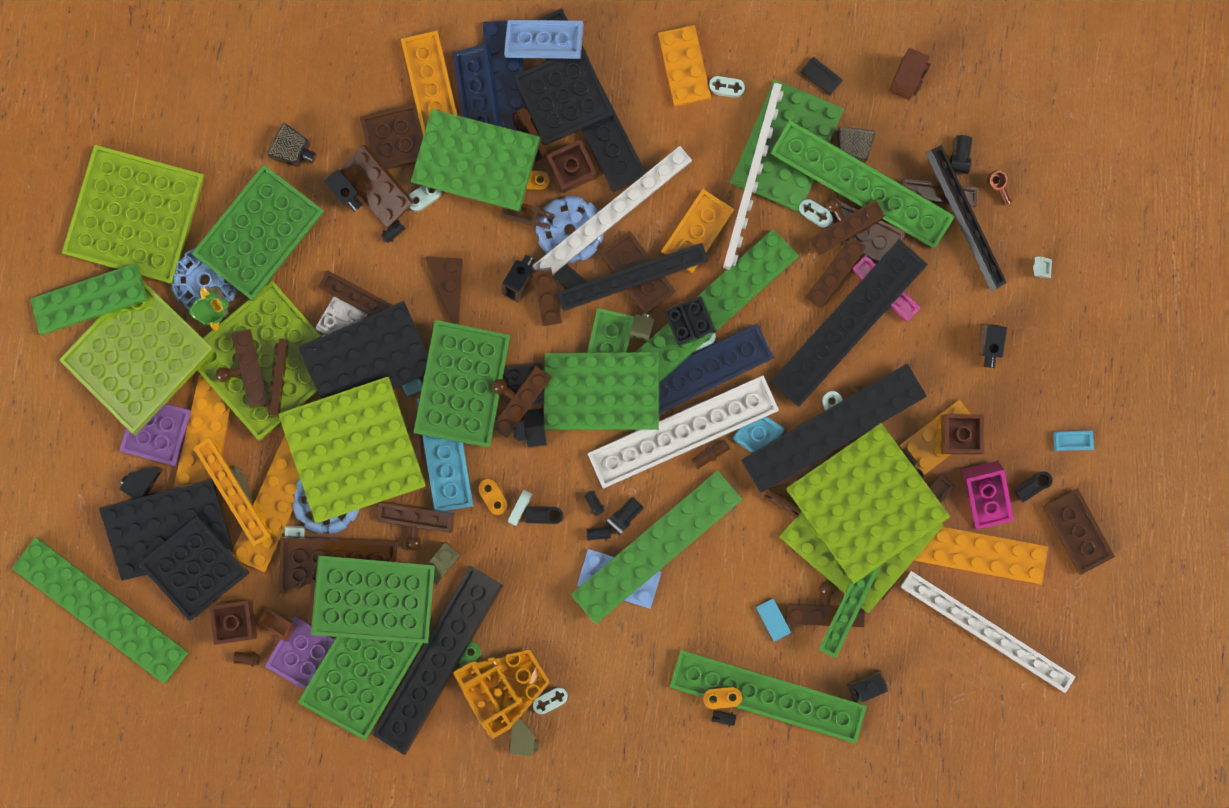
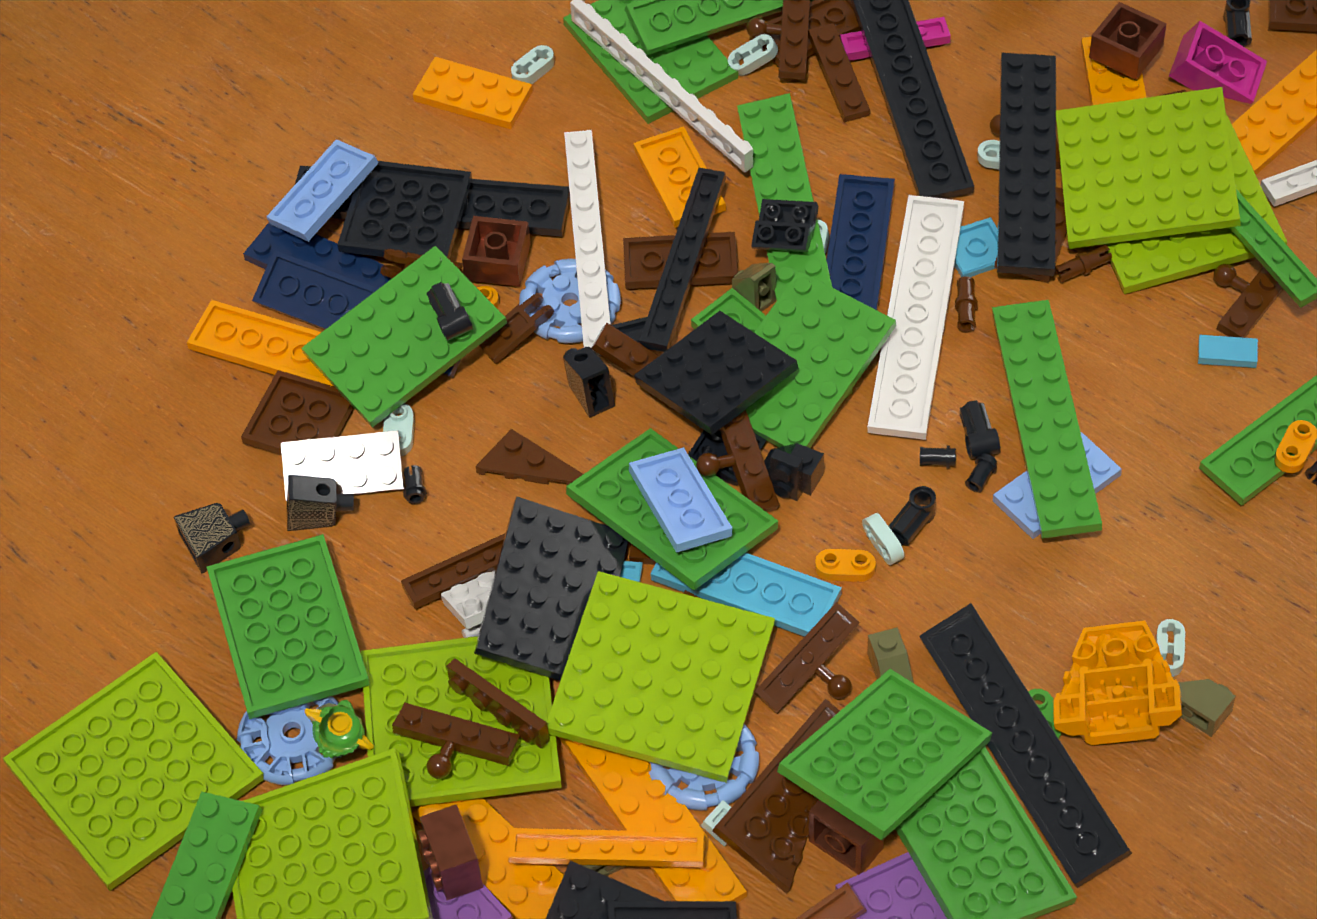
camera: 55 degrees left, 30 degrees down
(176, 417) = (449, 852): none -> copper brick
(462, 388) = (680, 500): none -> light blue plate
(492, 184) = (450, 315): none -> black piece
(558, 352) = (716, 372): none -> black plate

